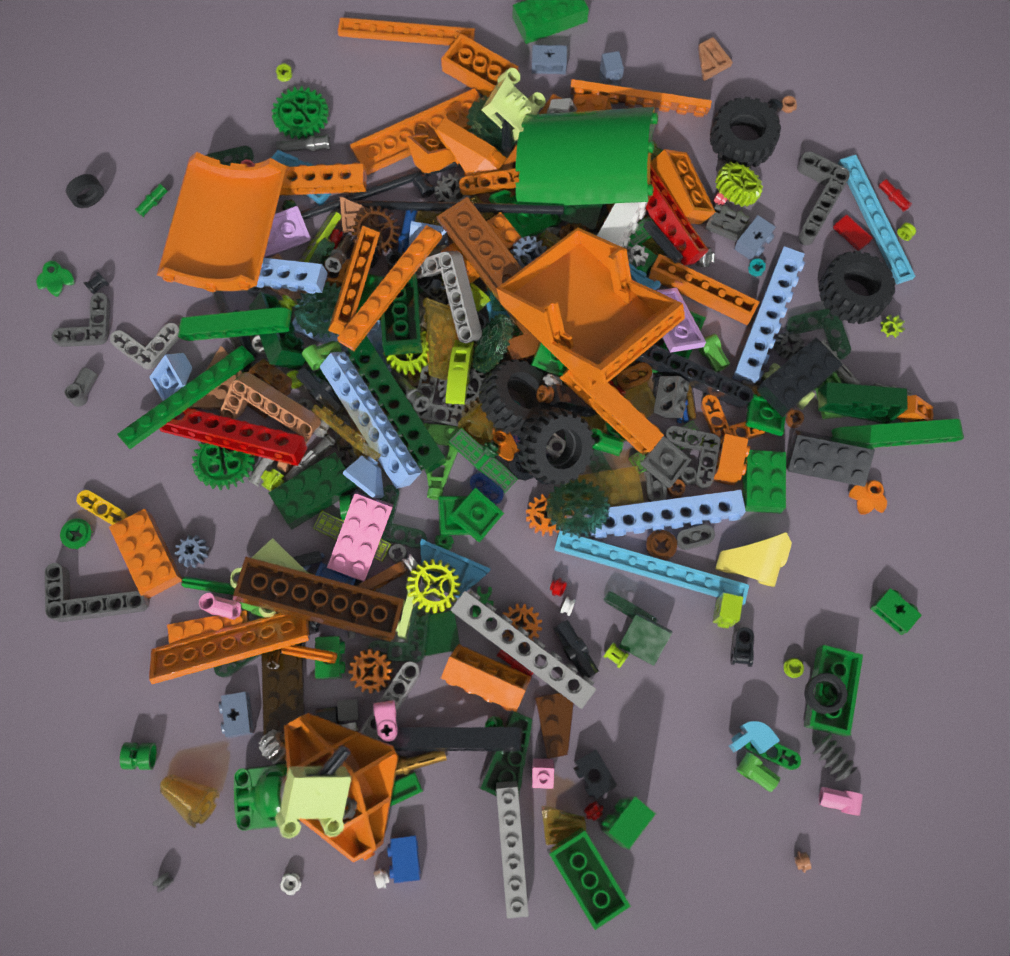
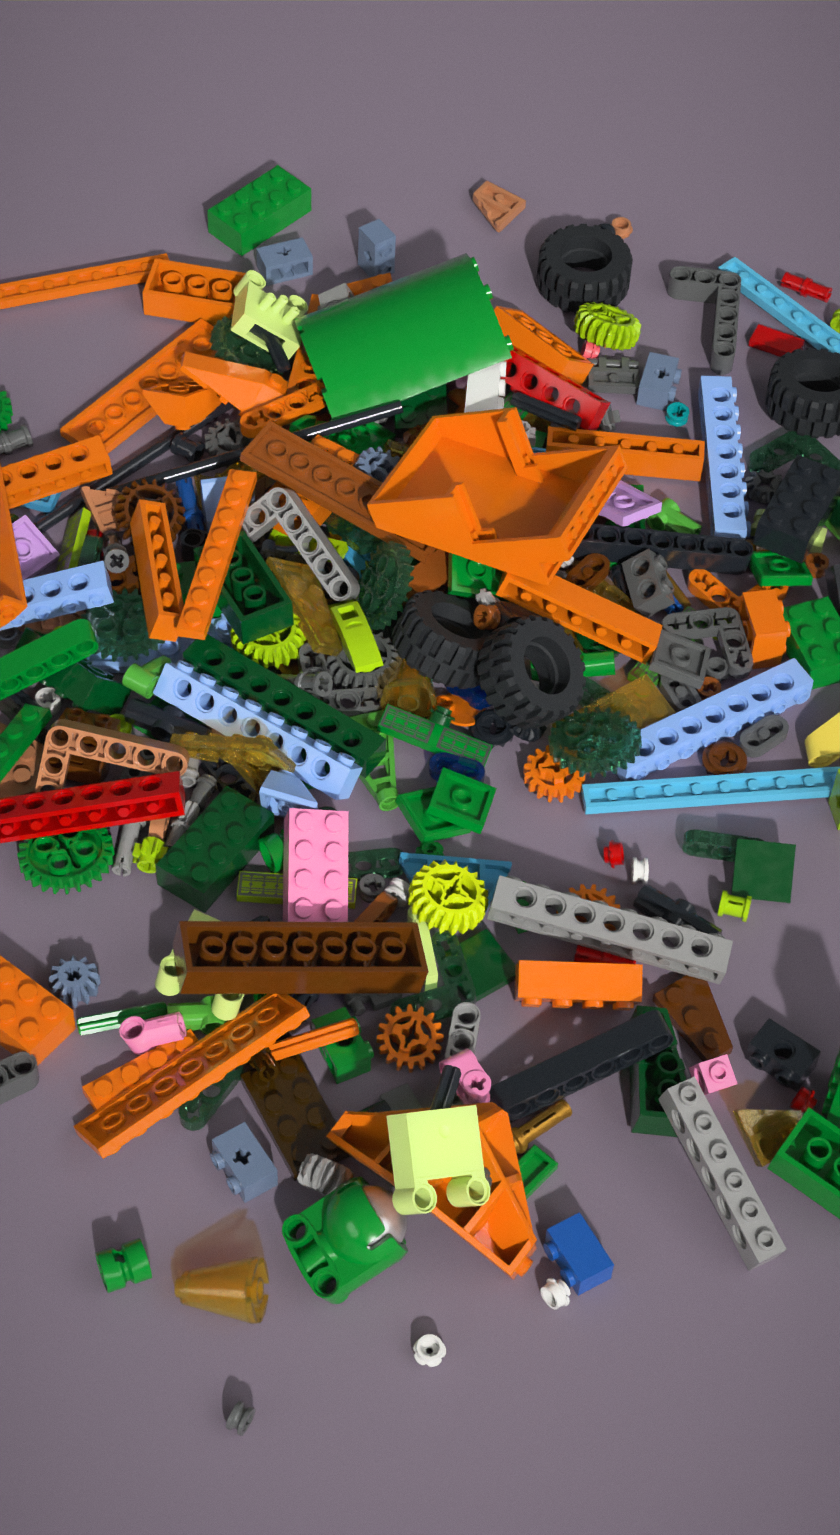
camera: 25 degrees left, 20 degrees down
(645, 98) = (489, 258): orange plate -> none

